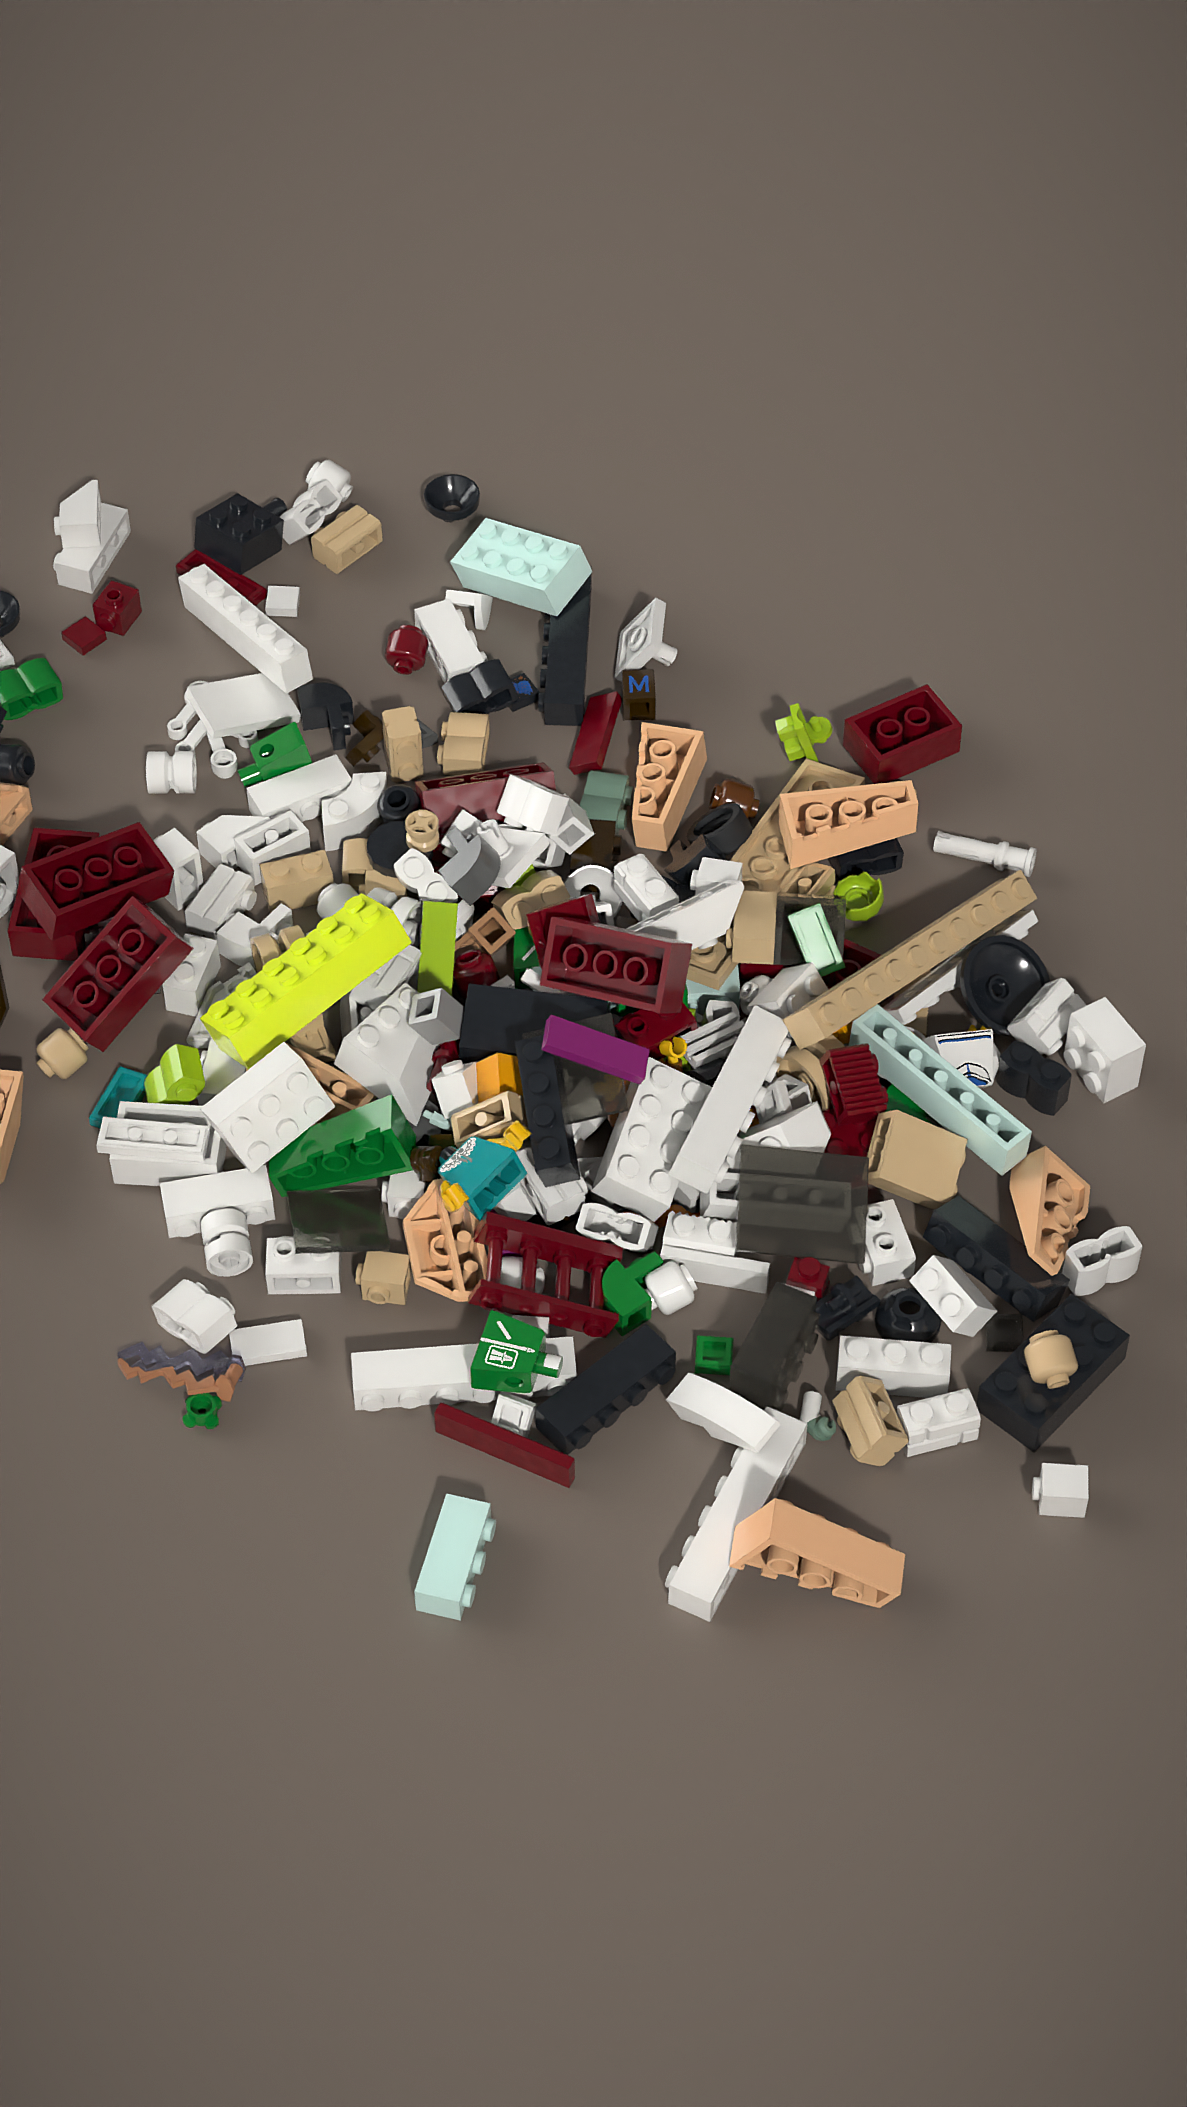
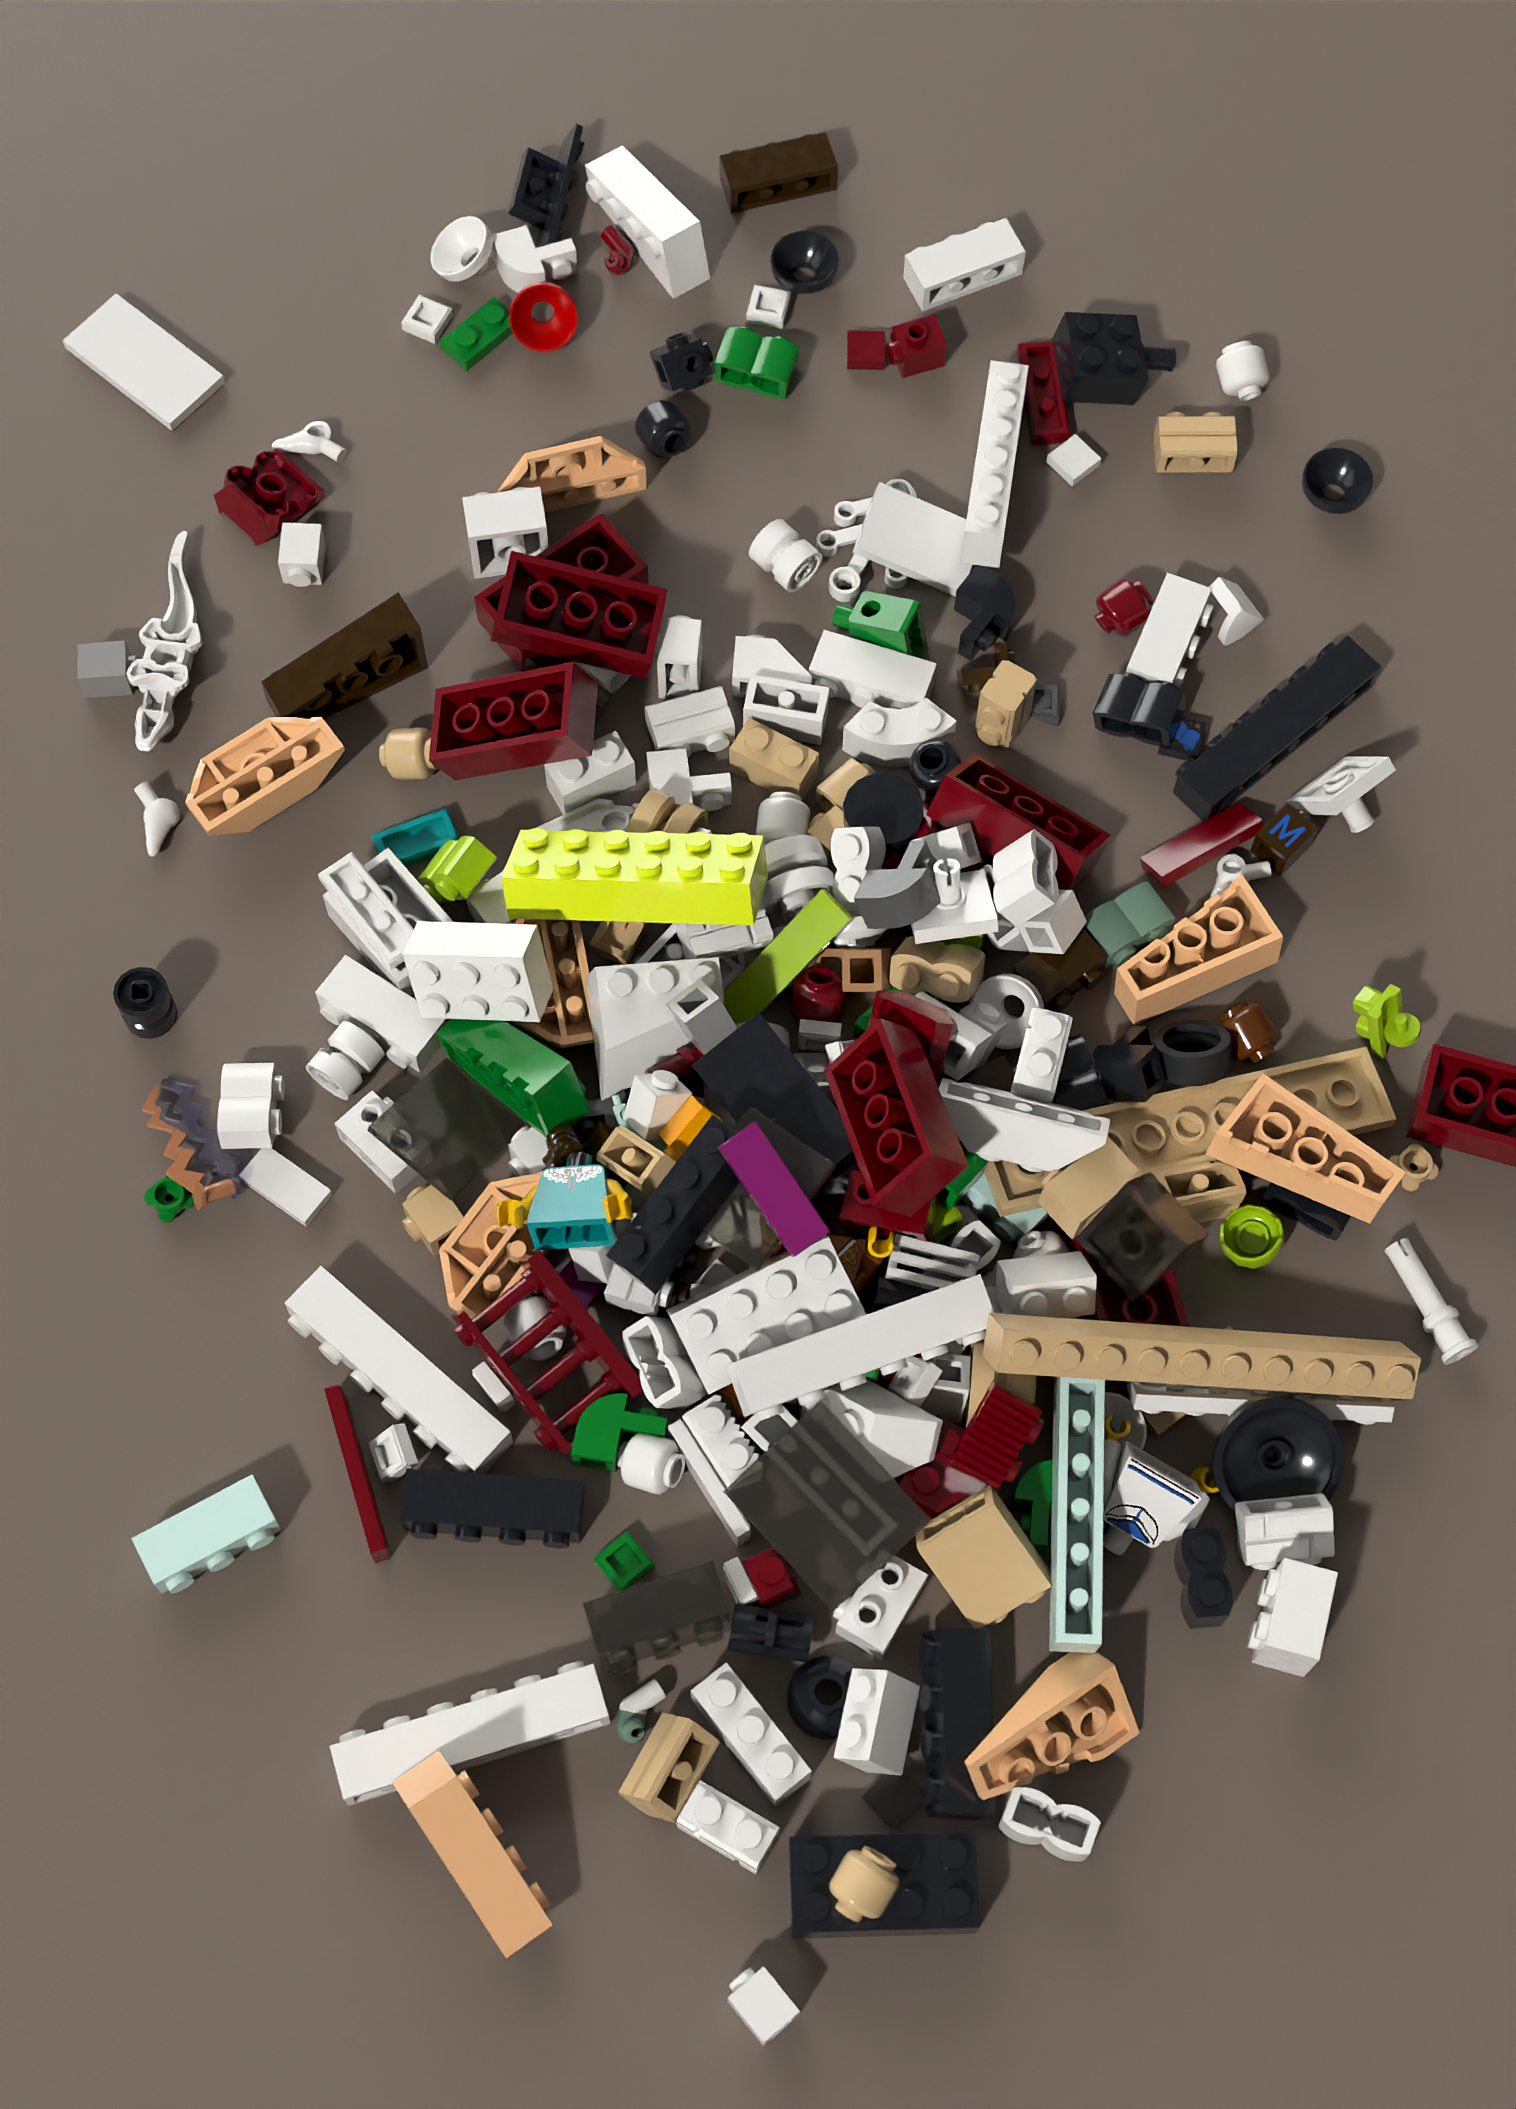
camera: 45 degrees right, 15 degrees up
(58, 1317) = (145, 1002): none -> black wheel
(80, 518) = (968, 227): white slope -> none
(310, 511) = (1194, 384): white brick -> none
(422, 830) = (910, 803): tan wheel -> none
(465, 743) = (1070, 751): tan brick -> none
(511, 1356) = (428, 1403): green torso -> none
(521, 566) = (1309, 613): light aqua brick -> none
(630, 736) = (1232, 867): none -> white animal
(714, 872) = (1115, 1101): white brick -> none
(722, 1413) = (550, 1632): white slope -> none
(816, 939) = (1125, 1256): tile -> none

